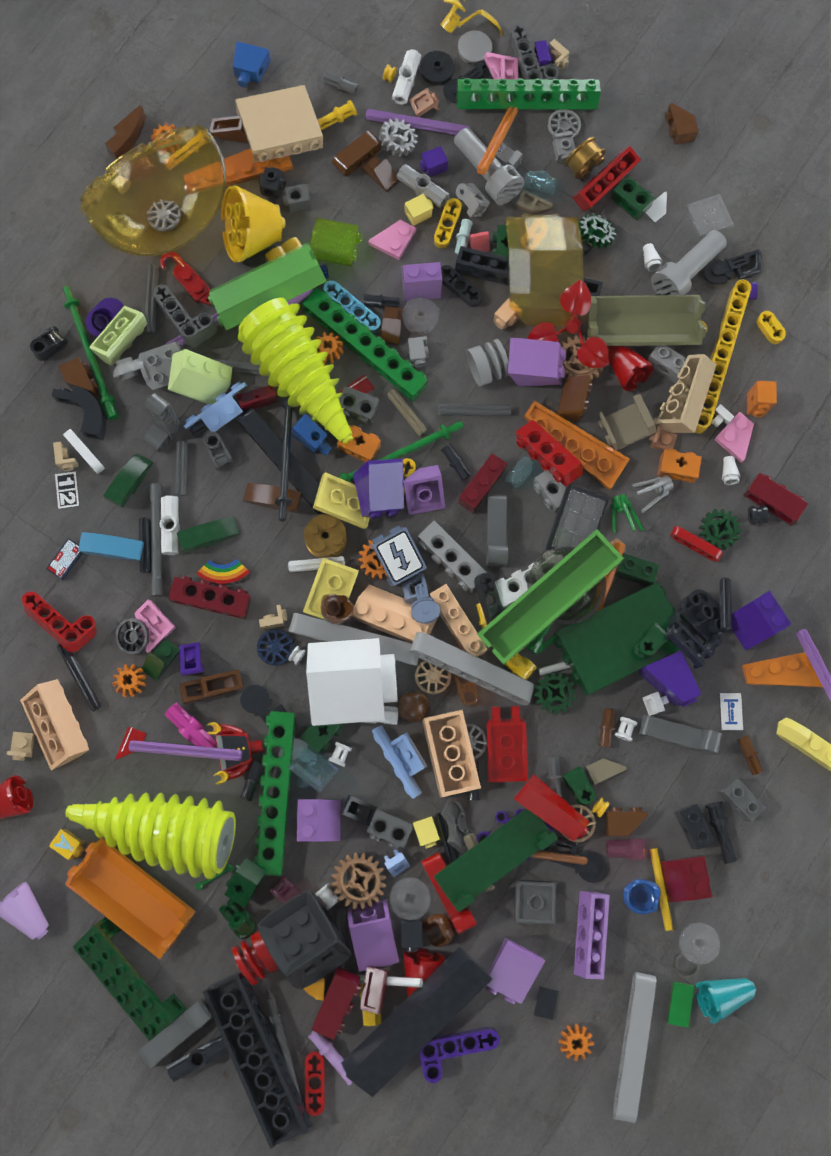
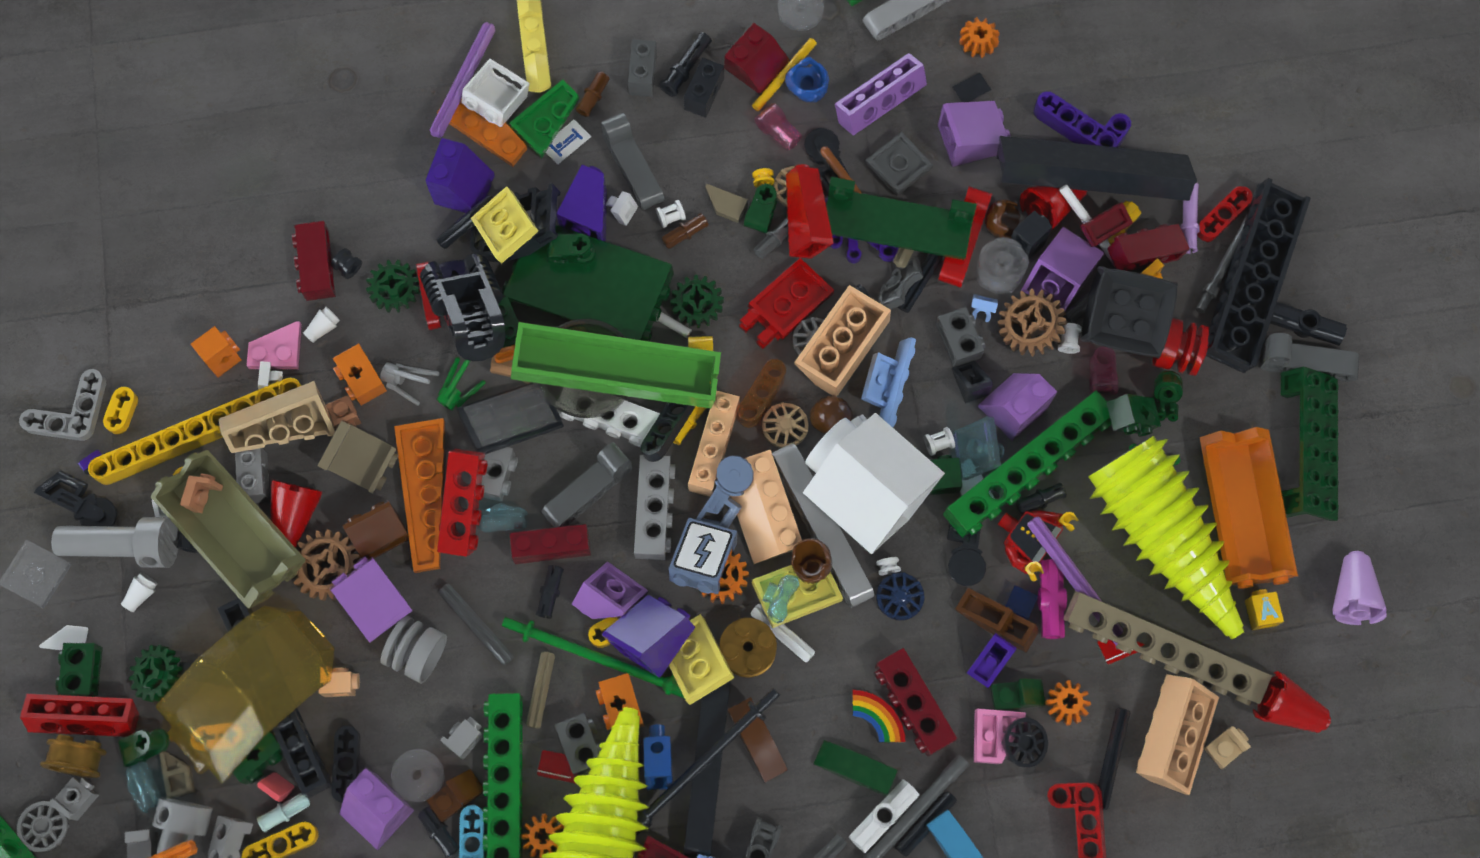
camera: 130 degrees left, 5 degrees down
(34, 788) = (1253, 680): none -> dark tan brick
(207, 710) = (1021, 602): none -> clear blue tile
(272, 622) = (881, 620): tan bracket -> none
(334, 572) = (778, 597): none -> clear light blue piece
(426, 832) = (931, 304): light yellow brick -> none
(472, 668) = (748, 386): light grey beam -> none
(562, 197) = (142, 746): none -> dark green piece
(576, 300) = (272, 608): red plant -> none
(623, 823) = (757, 147): reddish brown slope -> none
(676, 555) = (469, 301): none -> black connector
(680, 319) = (197, 490): none -> nougat bracket
(700, 615) = (504, 224): none -> light yellow plate
(758, 711) = (545, 117): none -> green wing
(787, 297) = (72, 420): none -> light grey beam
(800, 692) = (493, 95): none -> white piece

